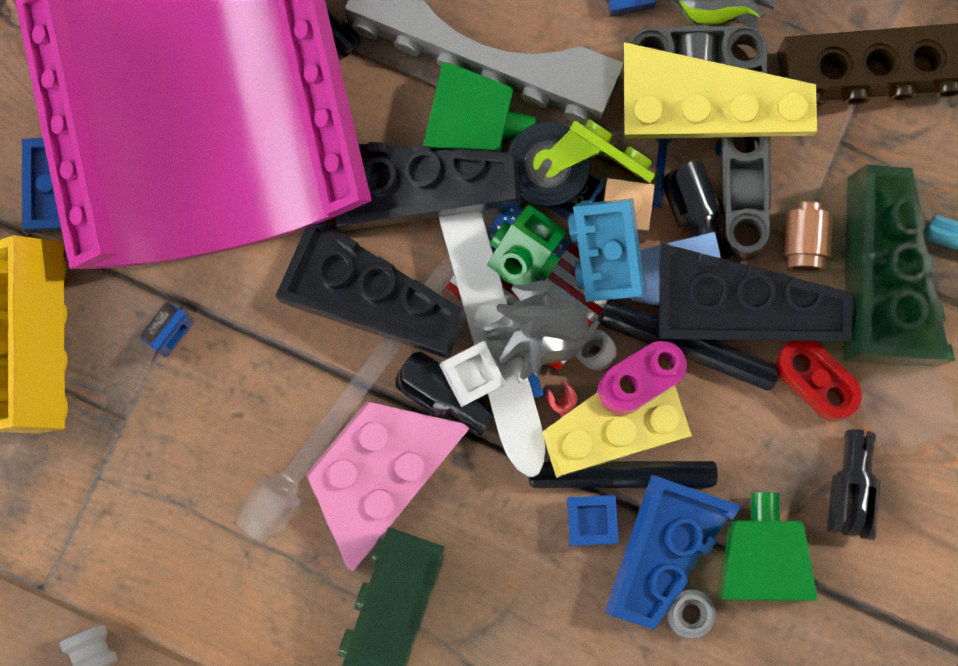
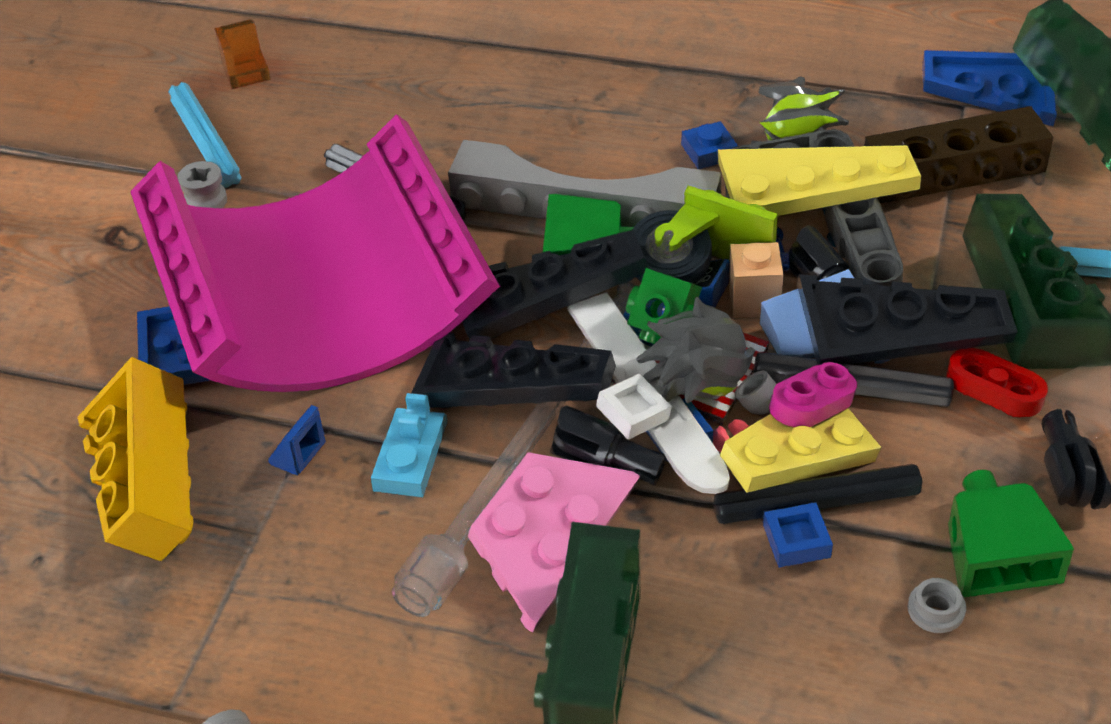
camera: 10 degrees left, 35 degrees down
(268, 352) = (409, 449): none -> medium azure plate
(607, 249) = (748, 285): dark azure bracket -> none
(665, 544) = (885, 545): blue wing -> none
(808, 237) = (940, 266): nougat brick -> none

